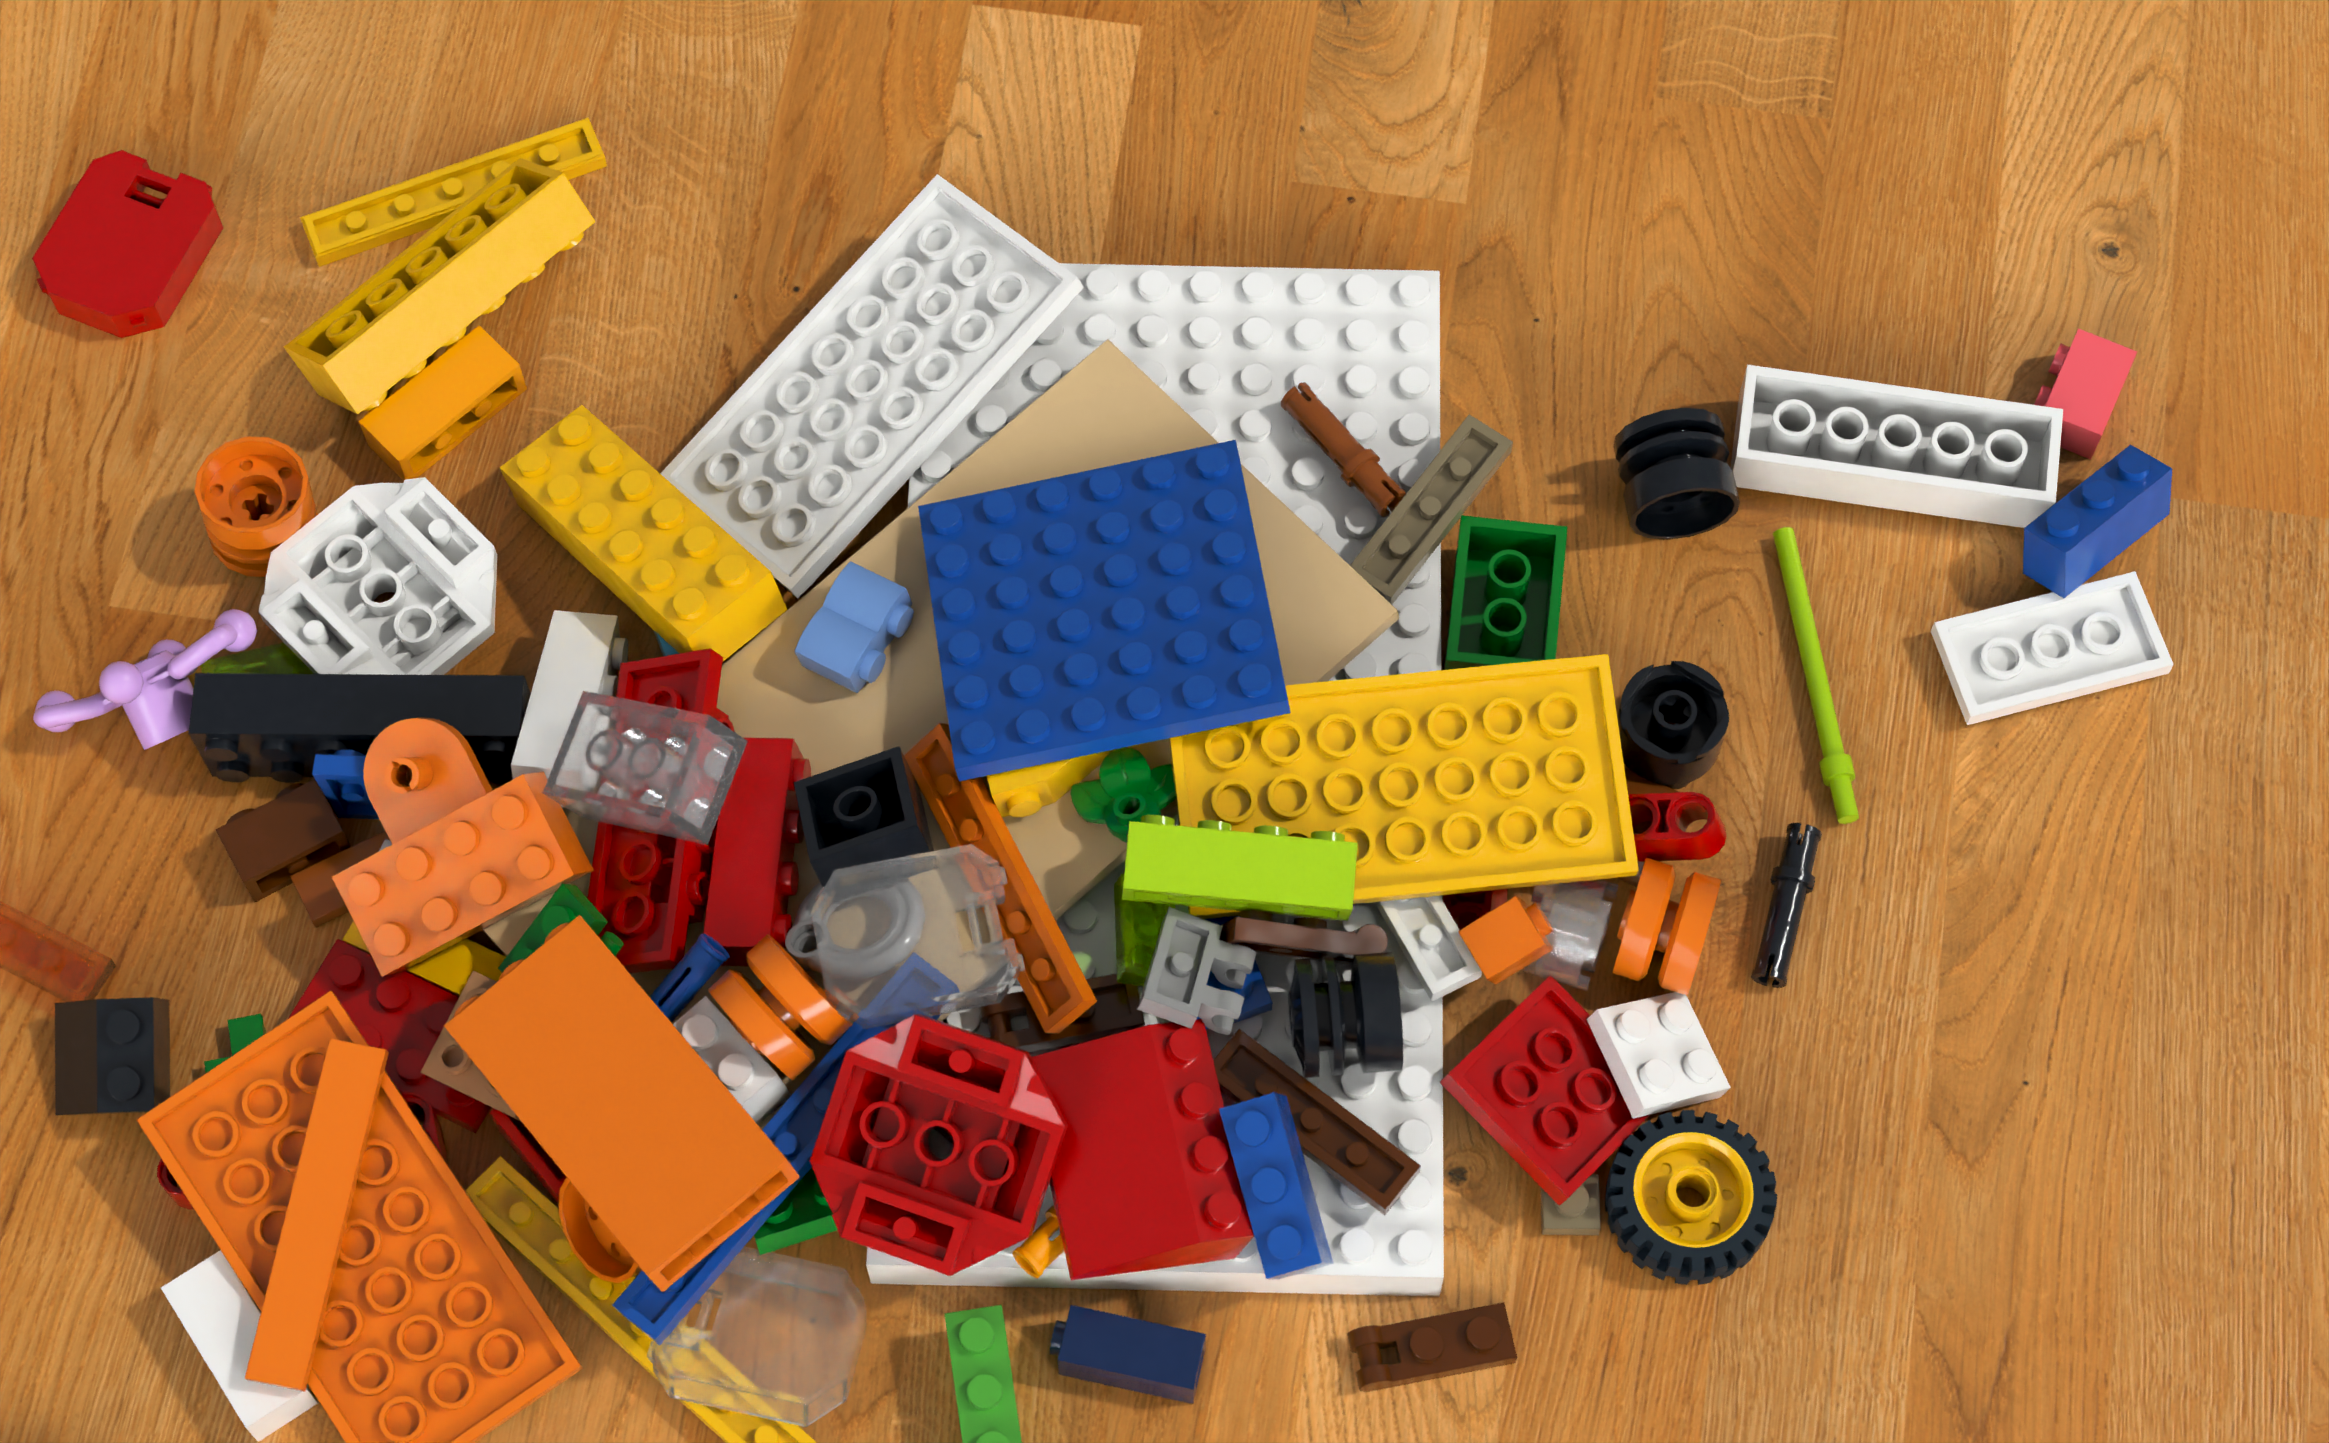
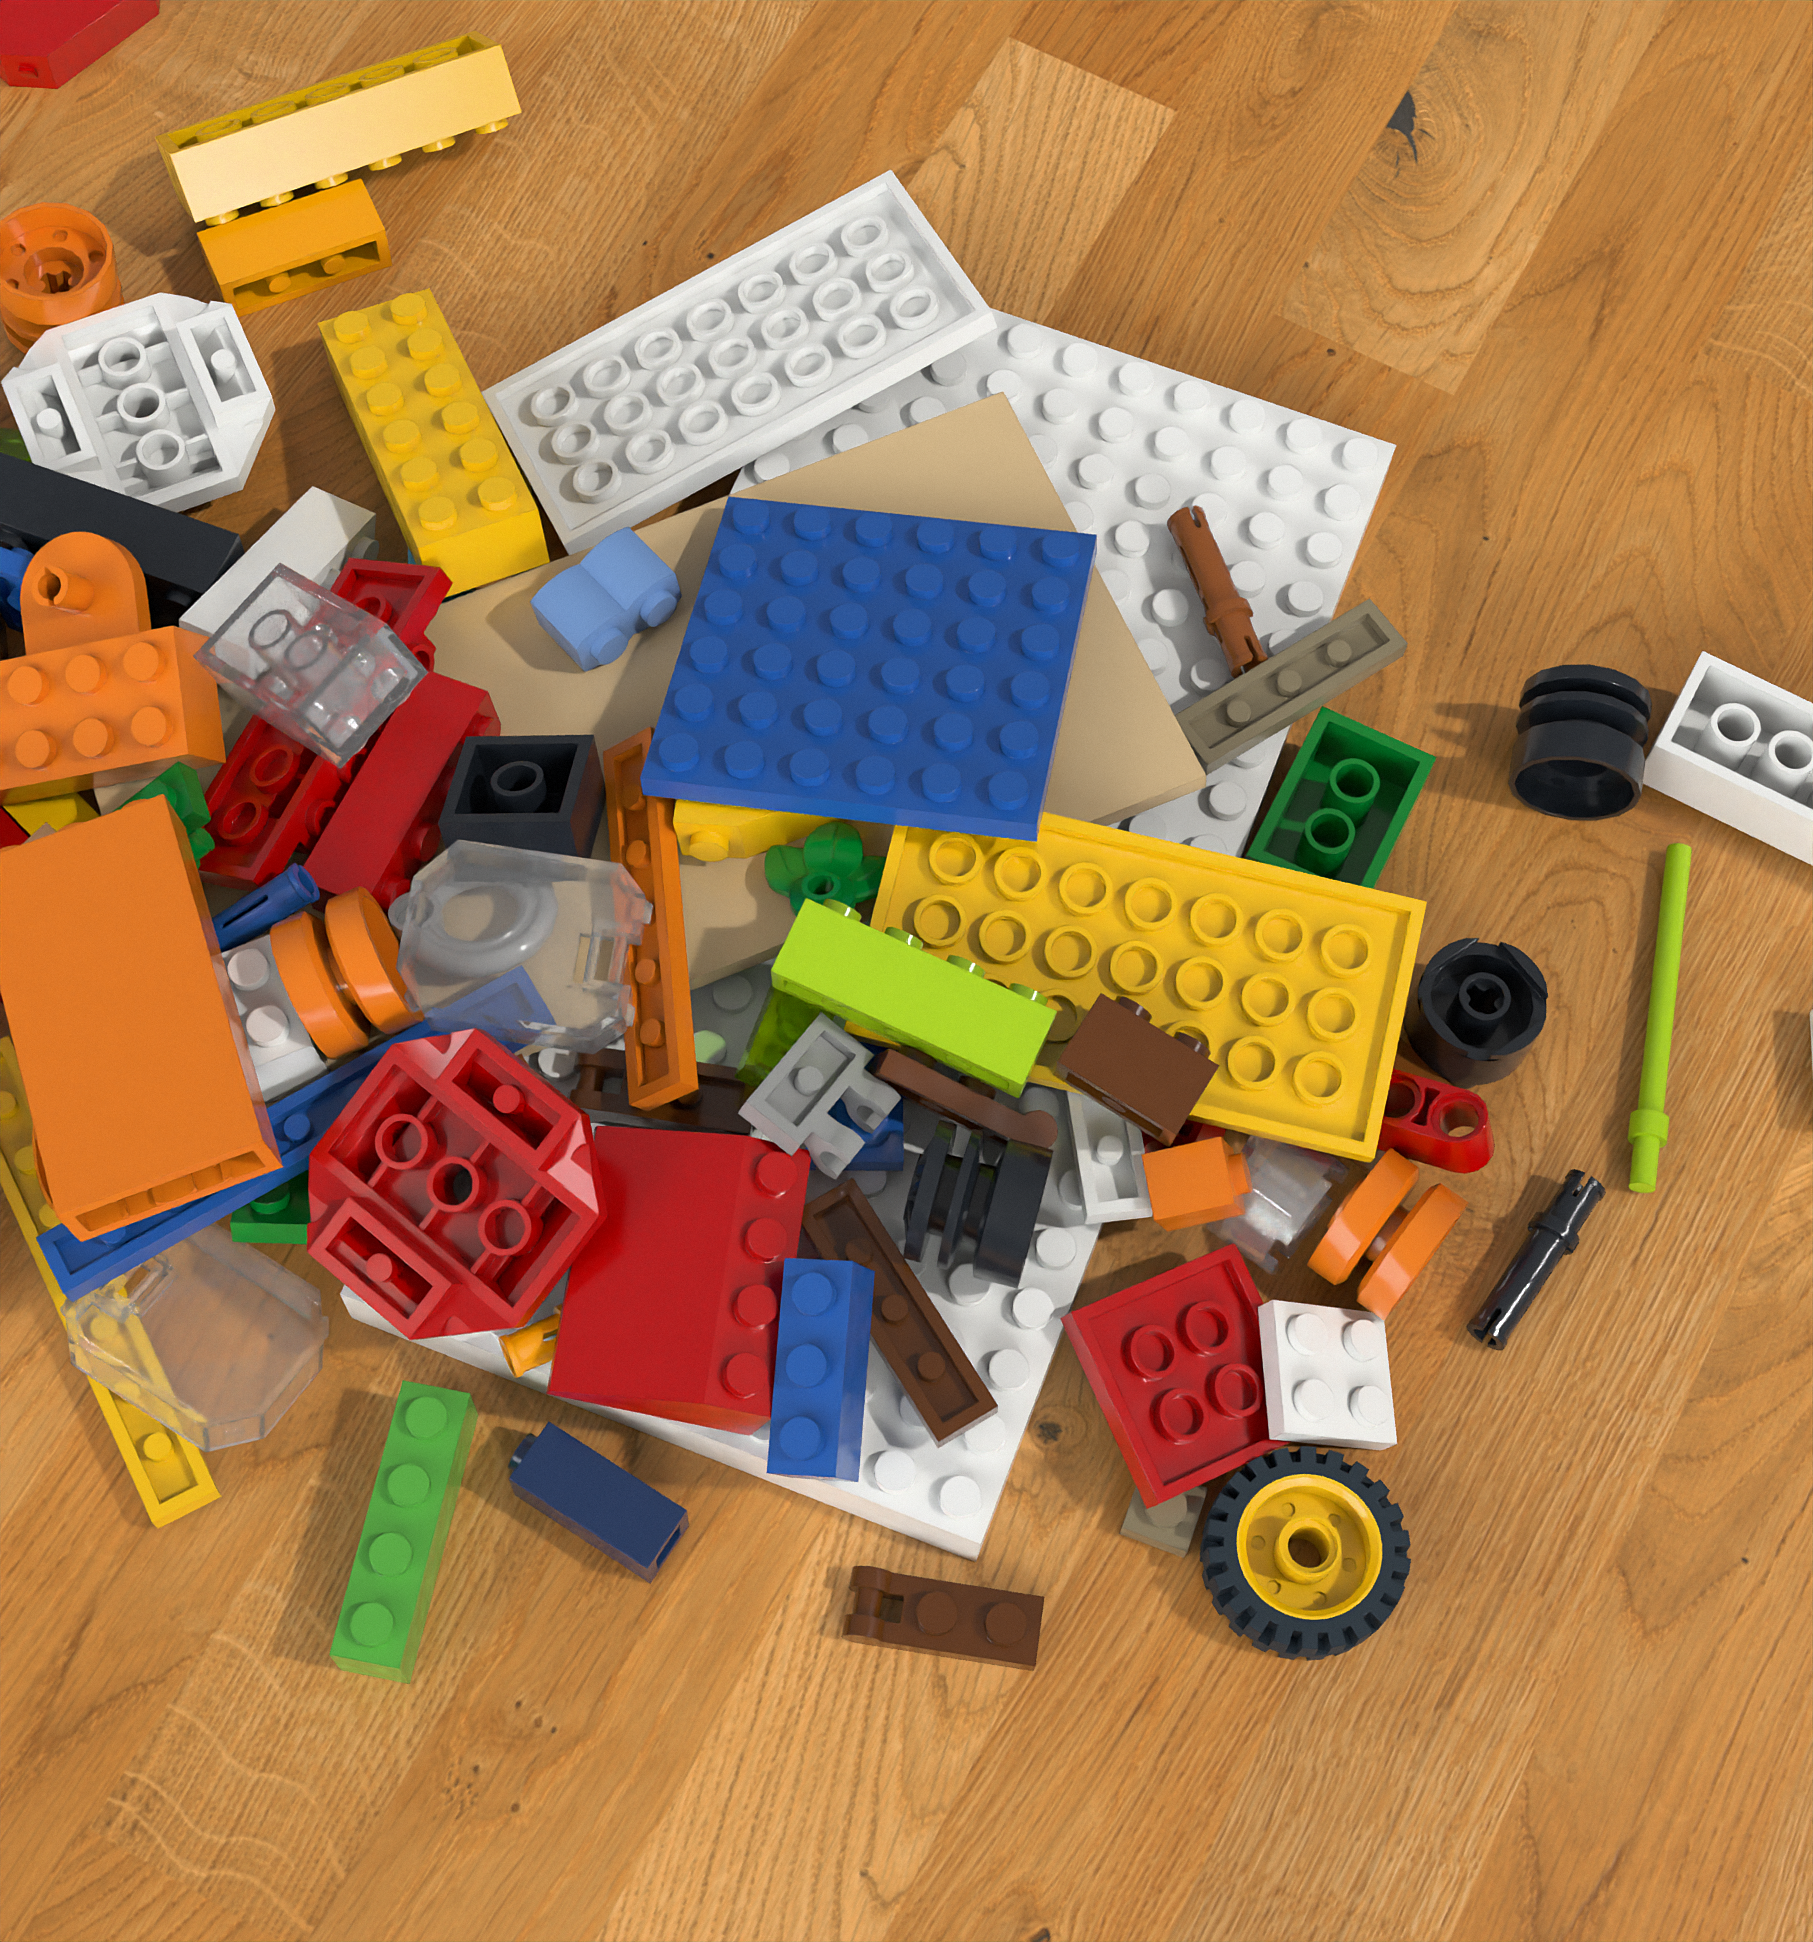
camera: 15 degrees right, 0 degrees up
(431, 197) = (334, 49): yellow tile -> none
(1433, 865) = (1136, 1067): none -> reddish brown brick

